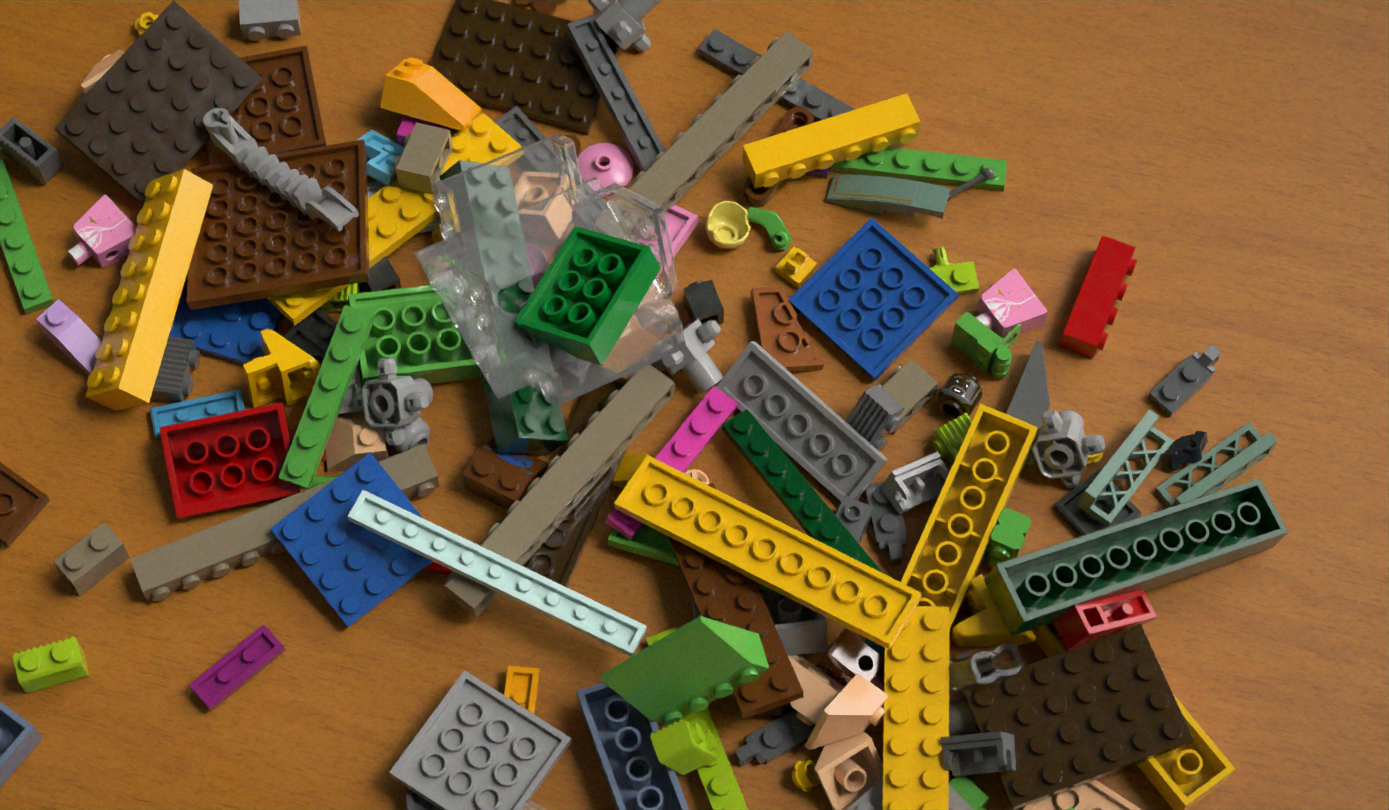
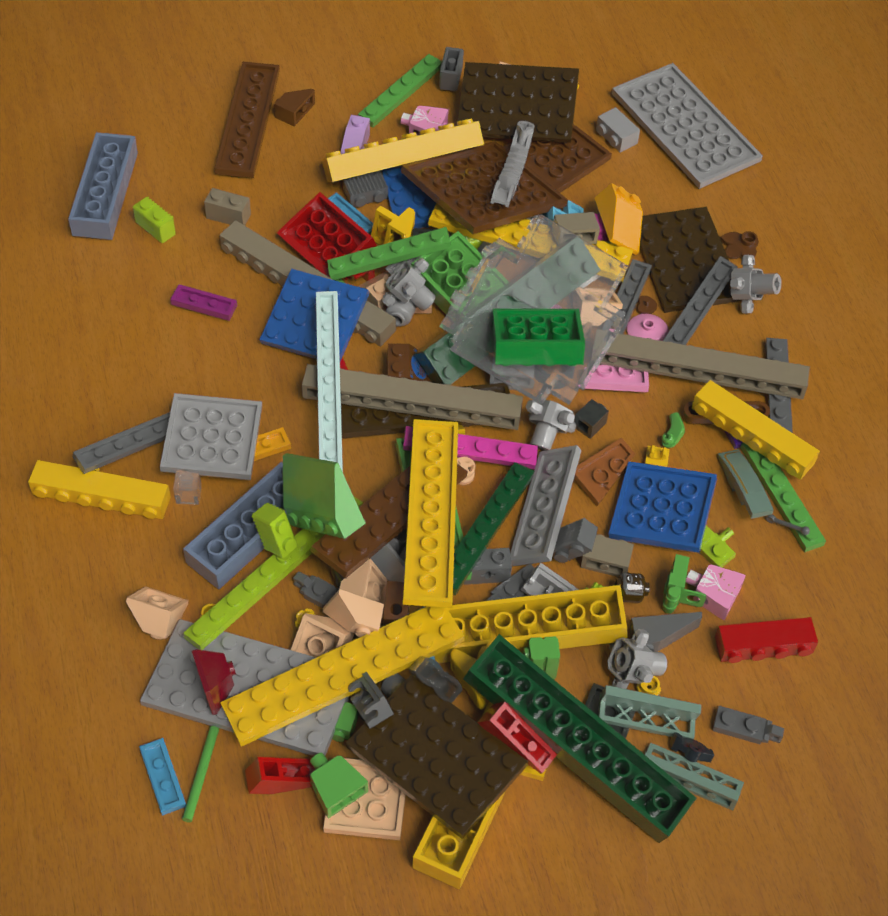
camera: 60 degrees right, 10 degrees down
(727, 225) = (655, 404): light yellow hair -> none

